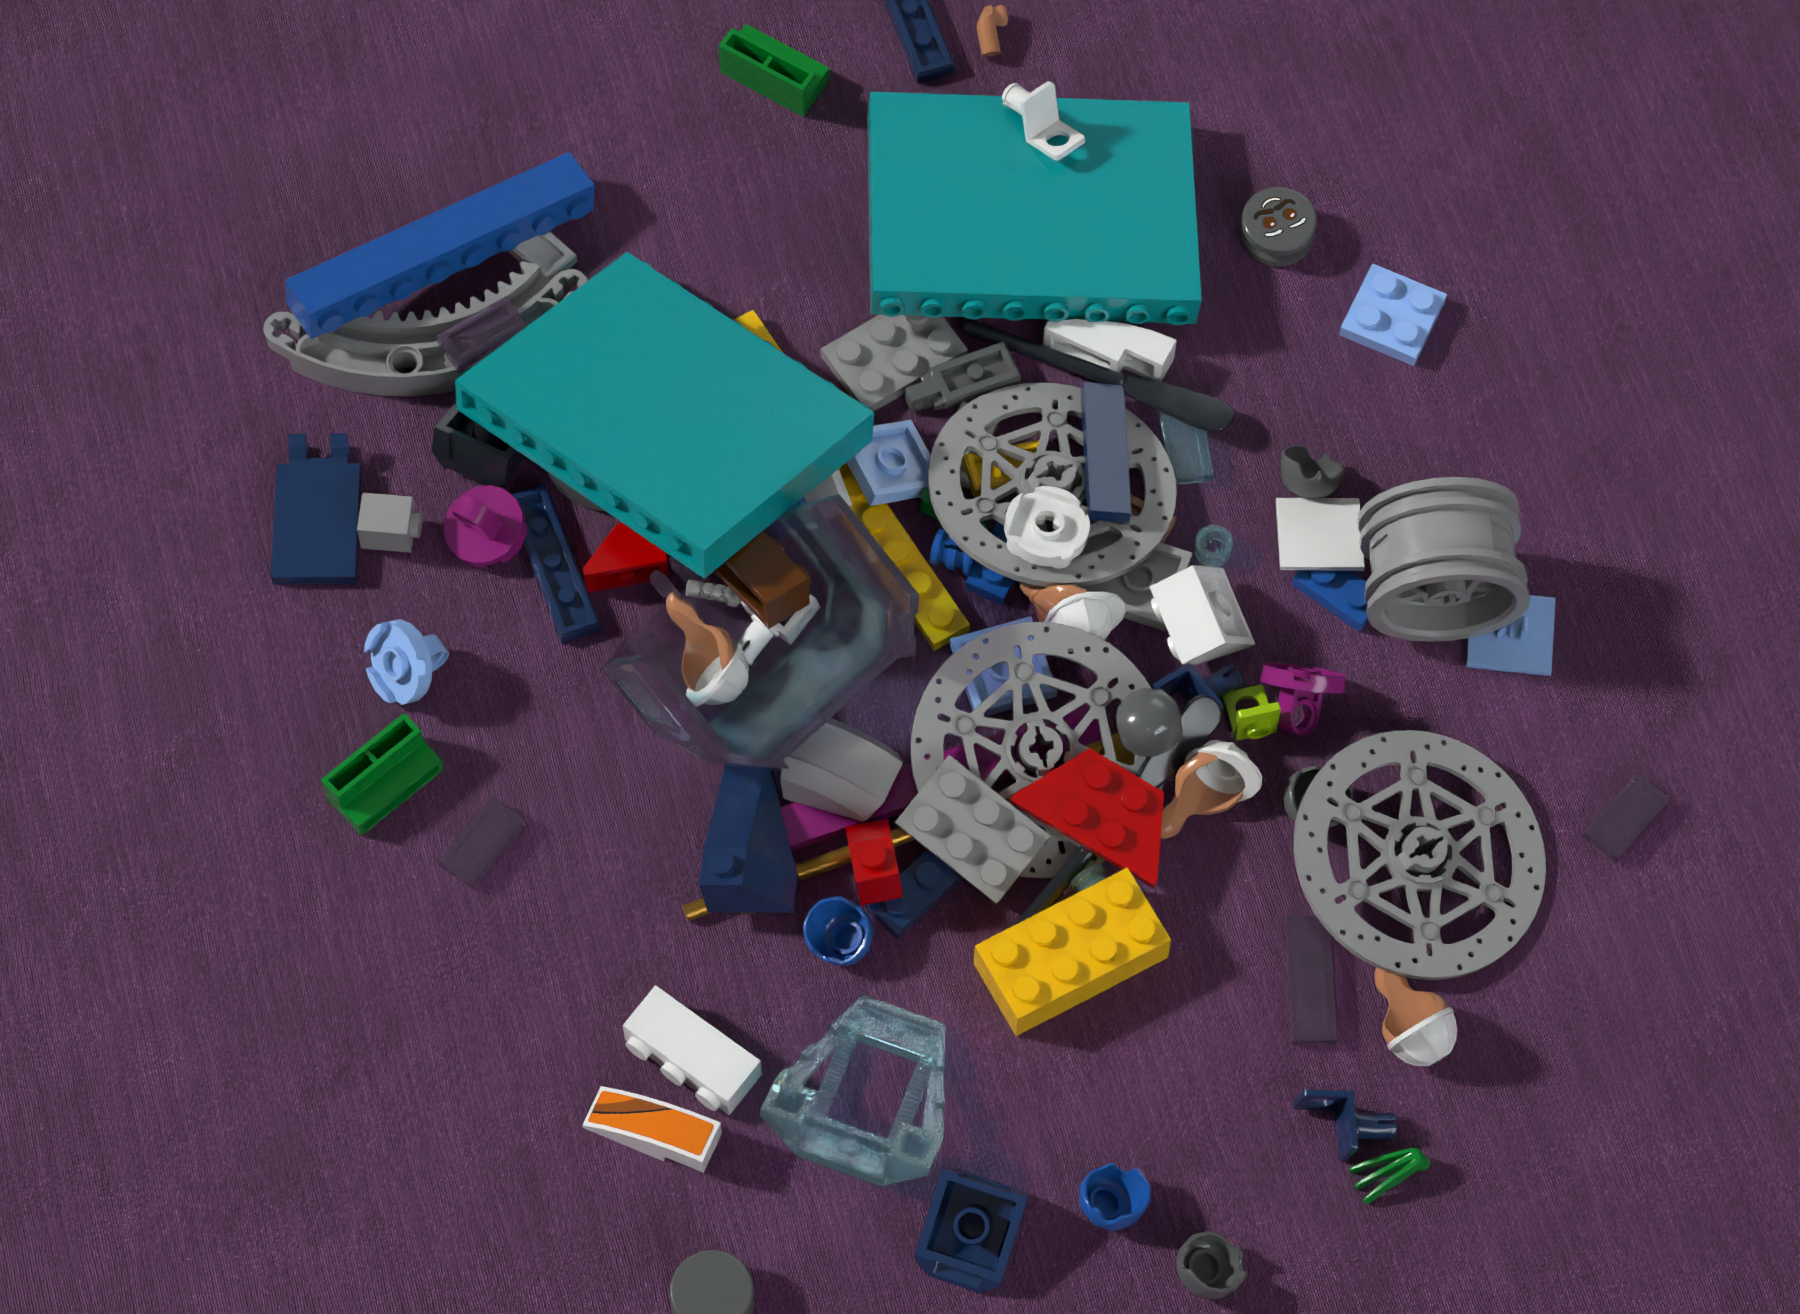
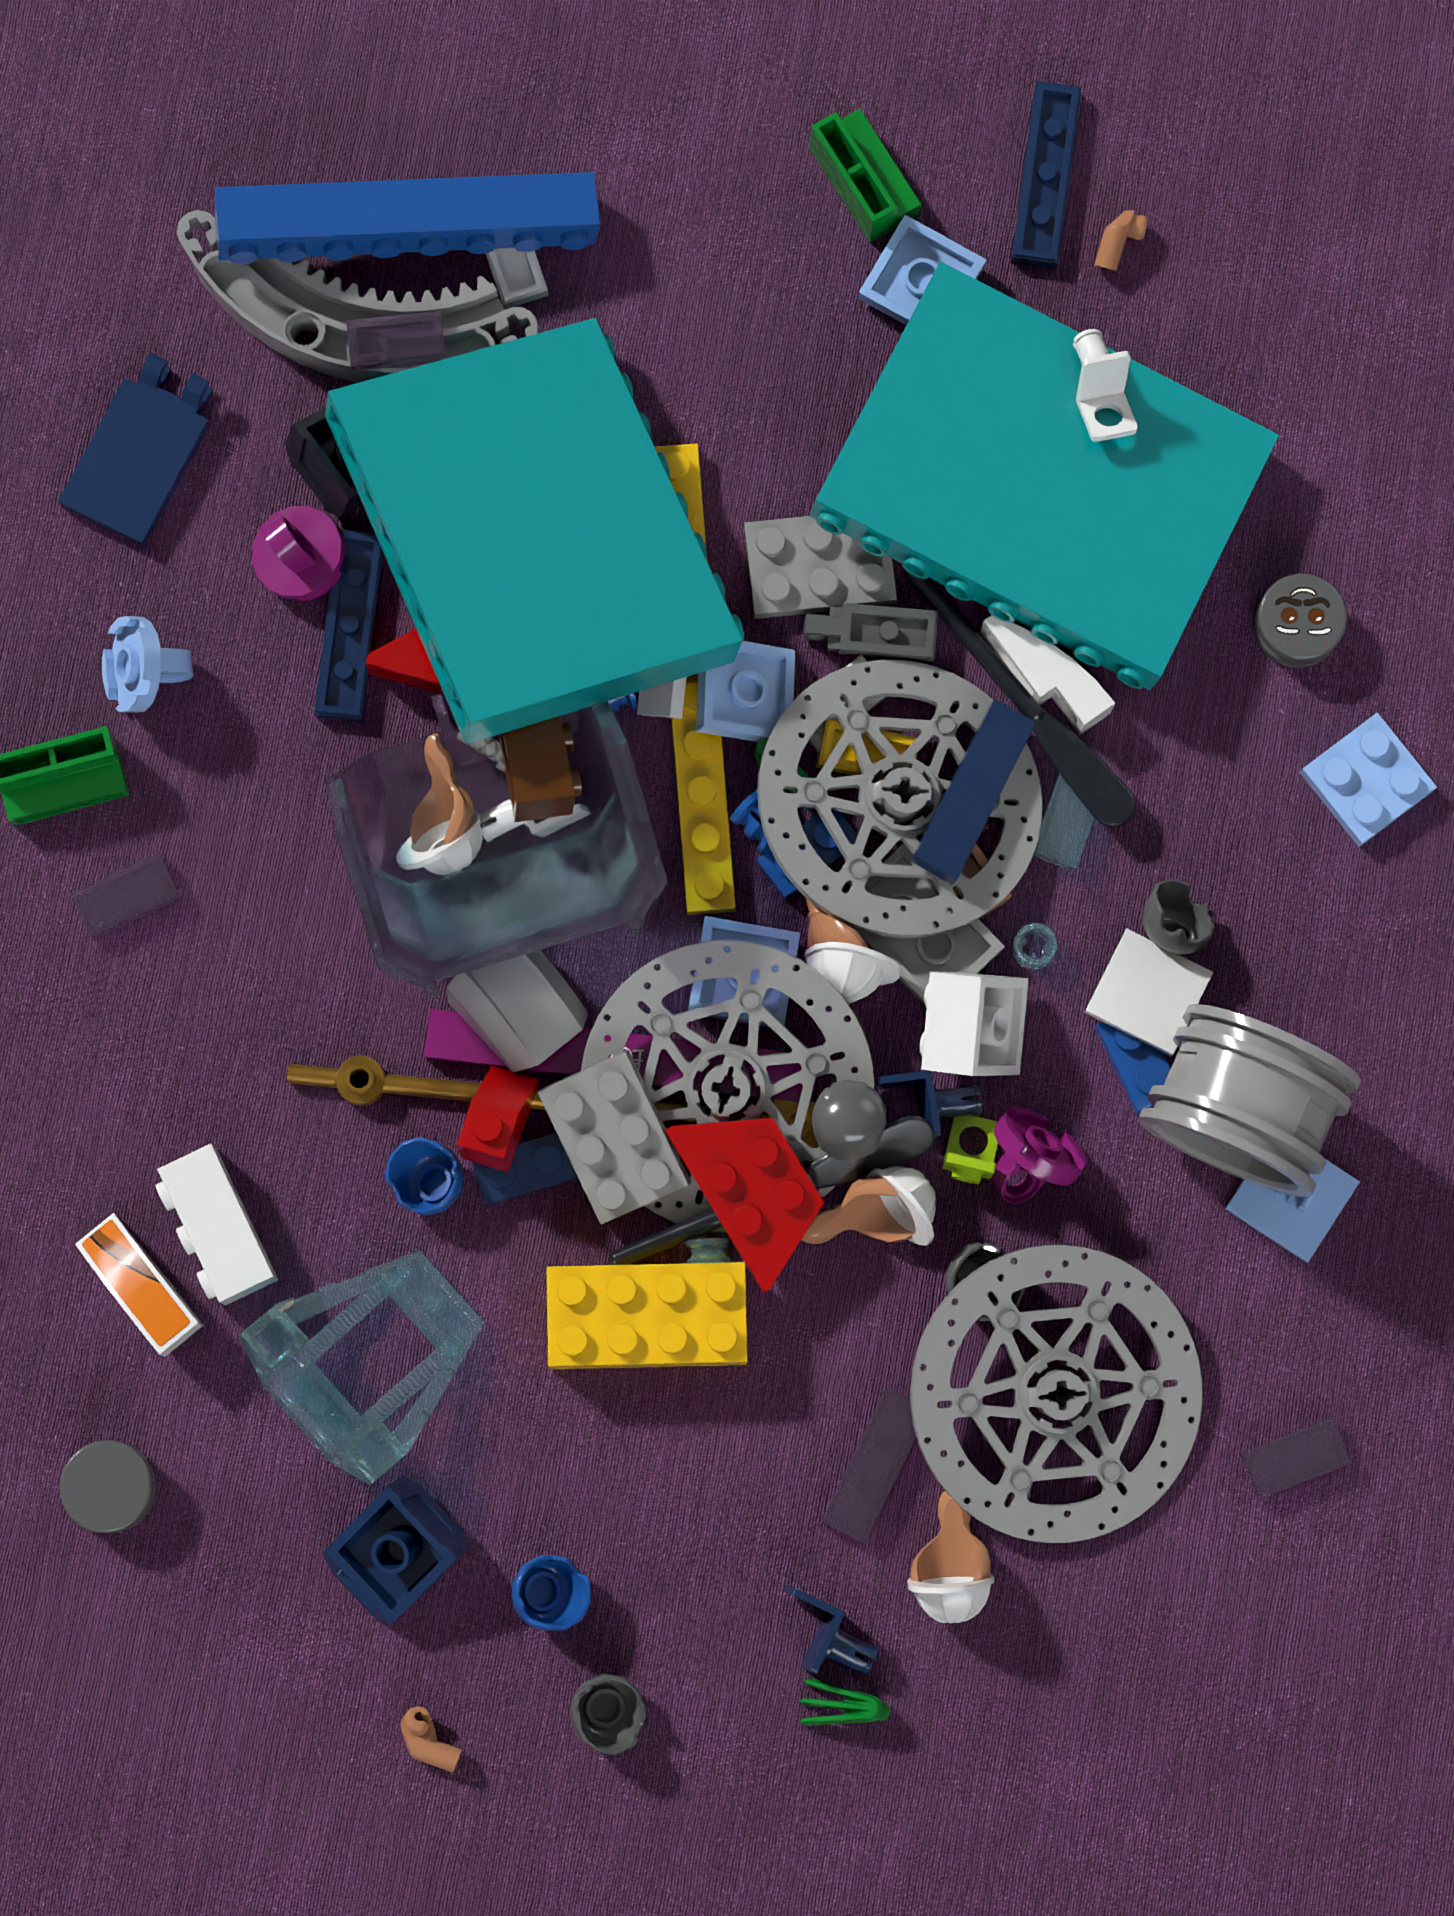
camera: 25 degrees right, 15 degrees up
(388, 522) = (201, 502): light grey brick -> none
(747, 848) = (374, 1051): dark blue wedge -> none
(844, 118) = (909, 264): none -> light blue plate
(1042, 547) = (858, 879): white plate -> none

